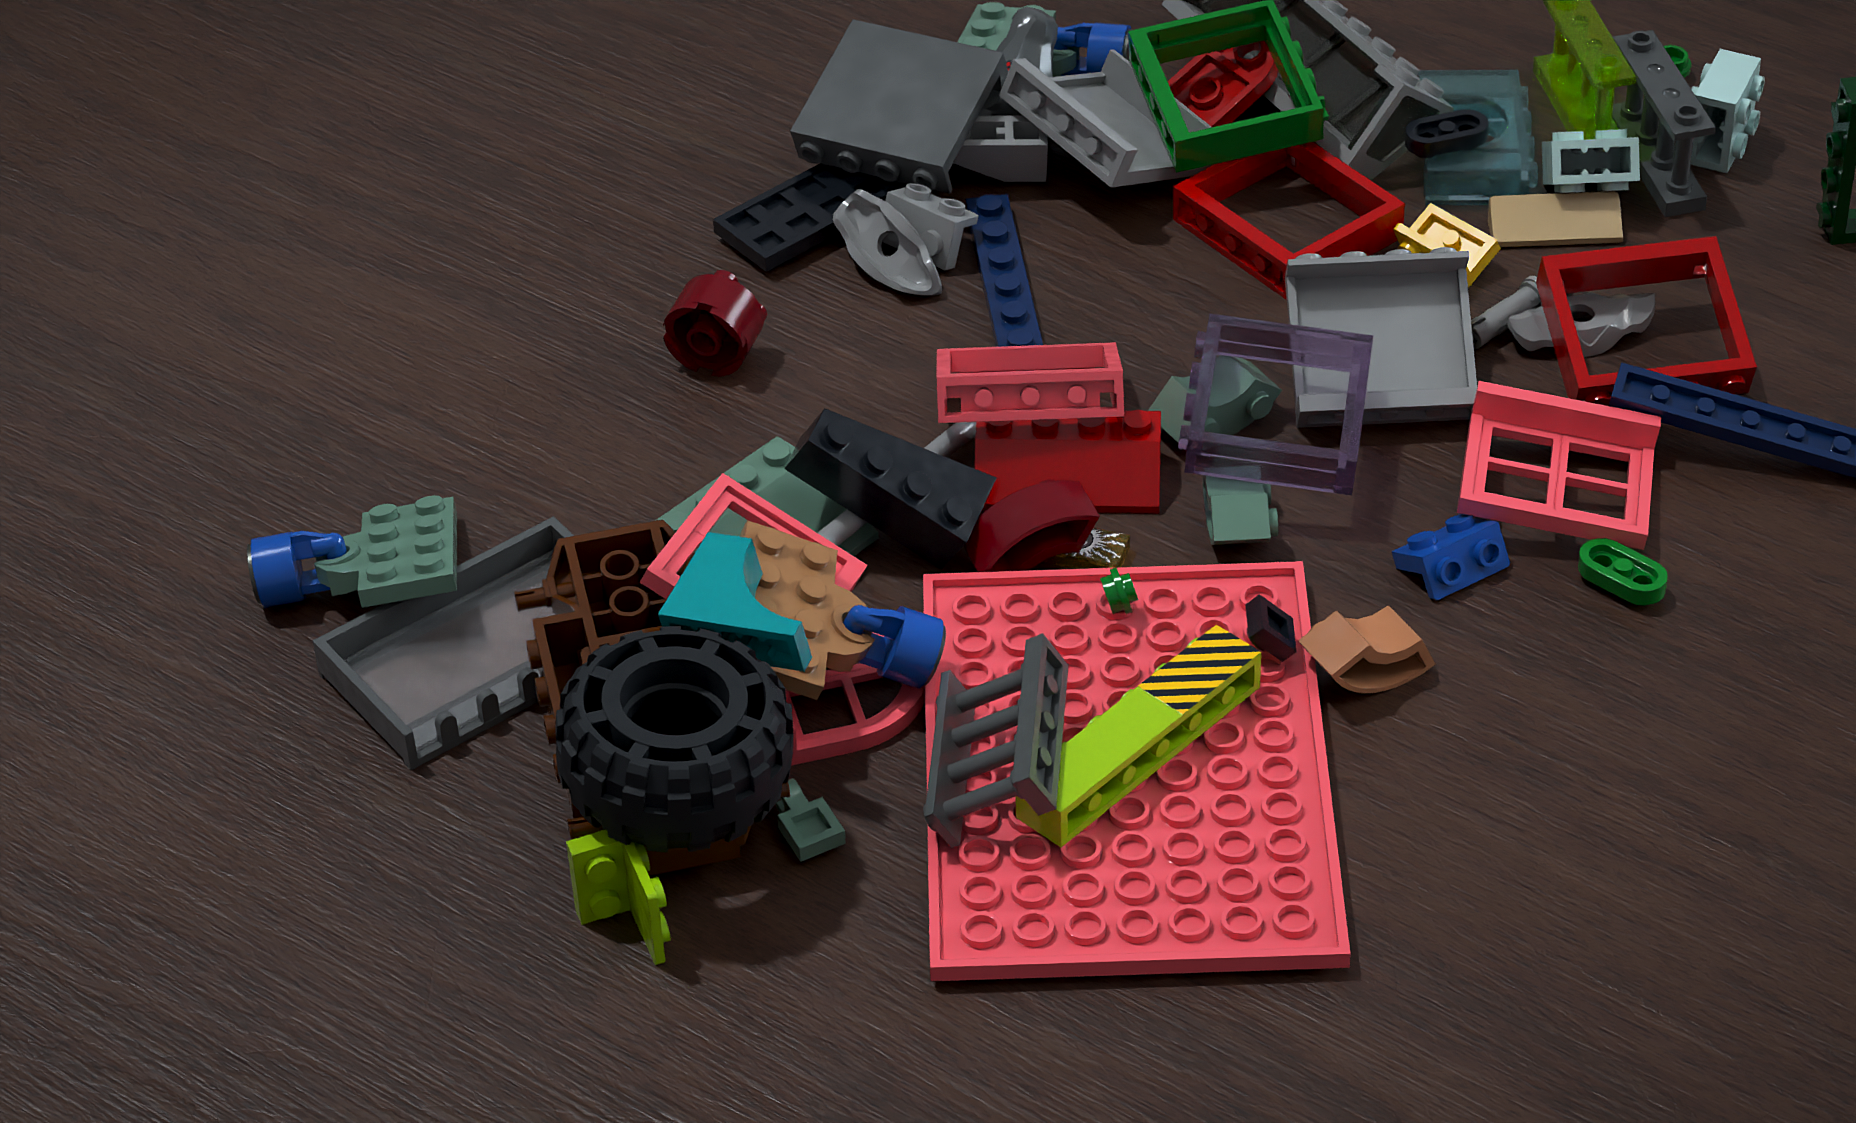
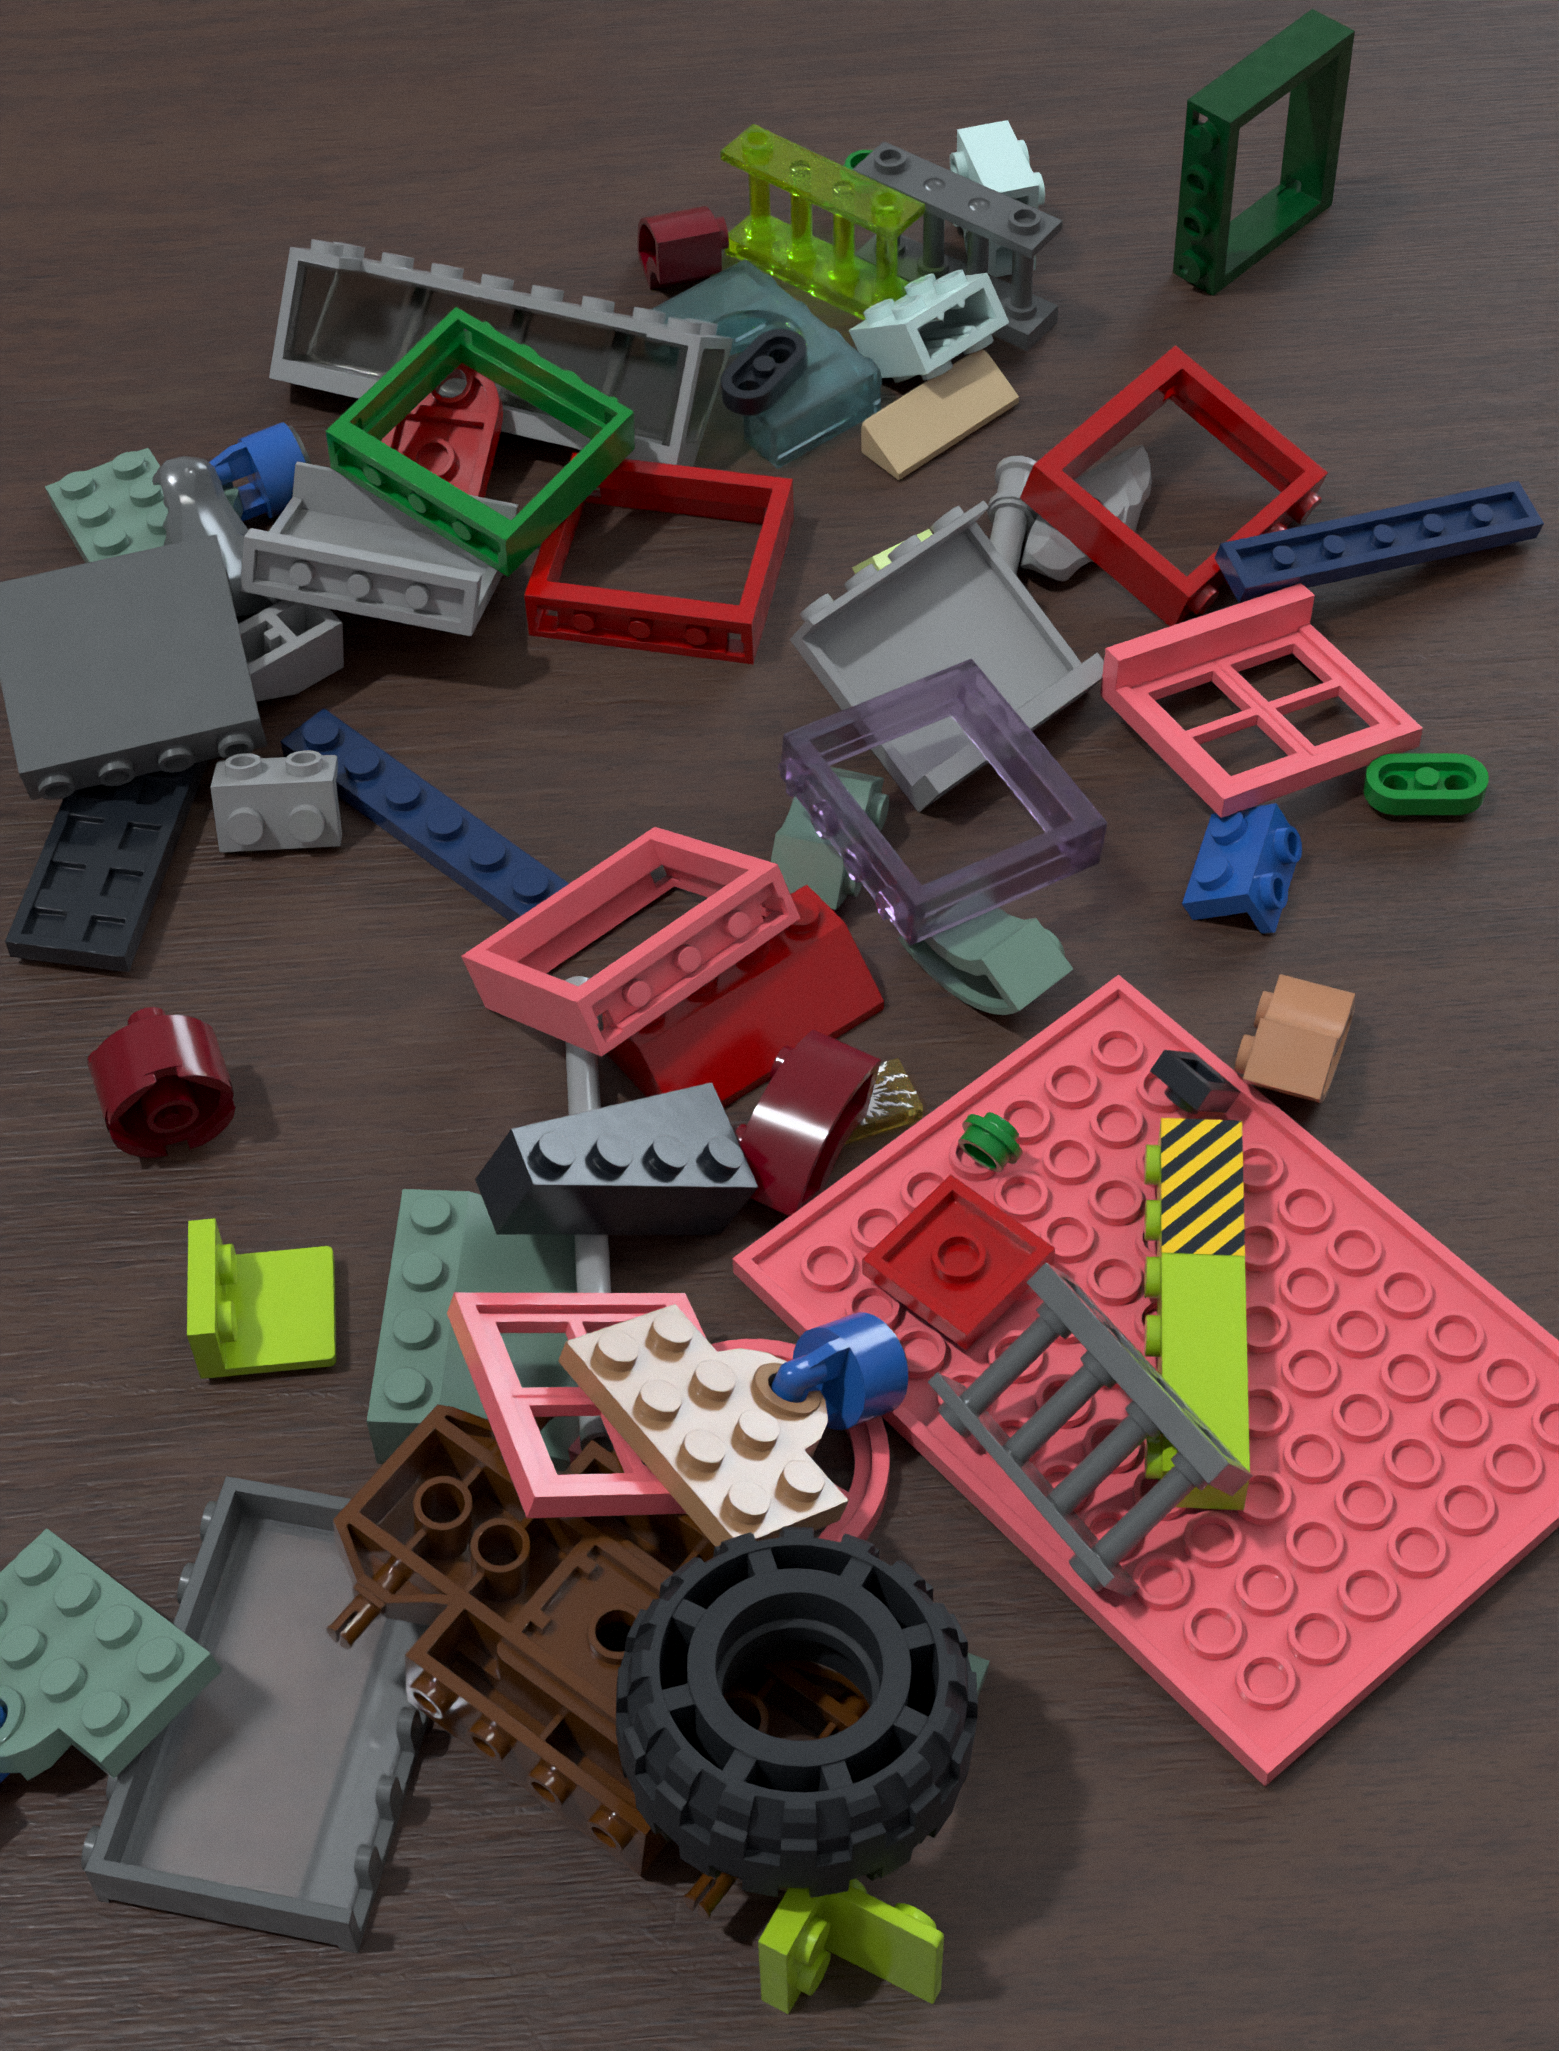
camera: 40 degrees left, 10 degrees up
(650, 458) = (258, 1307): none -> lime bracket
(720, 597) = (691, 1493): teal arch -> none
(865, 223) = (208, 841): light grey piece -> none
(1013, 621) = (957, 1261): none -> red plate
(1441, 229) = (866, 503): yellow bracket -> none
(1485, 43) = (681, 246): none -> dark red brick

